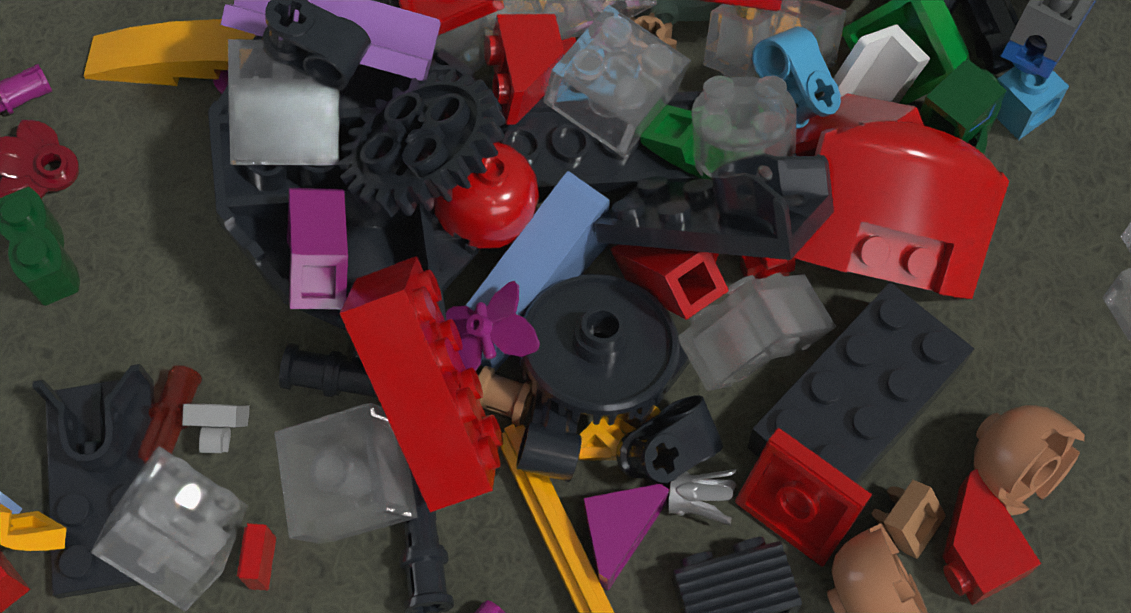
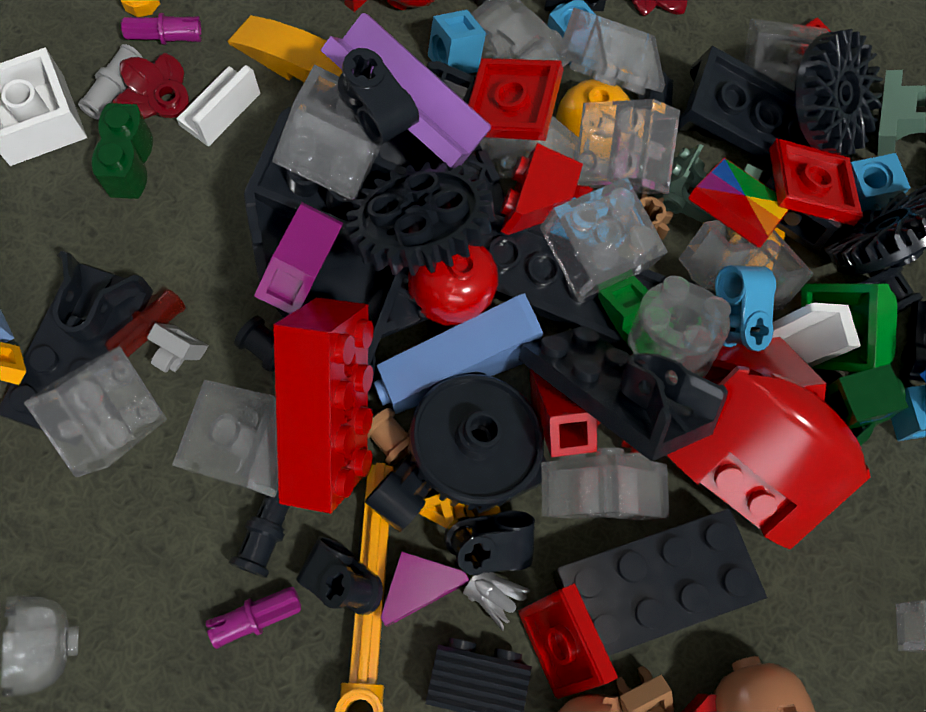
camera: 20 degrees right, 5 degrees up
(115, 146) = (220, 104): none -> white panel
(256, 556) = (147, 464): red tile -> none
(493, 325) = (403, 383): magenta piece -> none
(535, 561) = (340, 578): none -> black piece

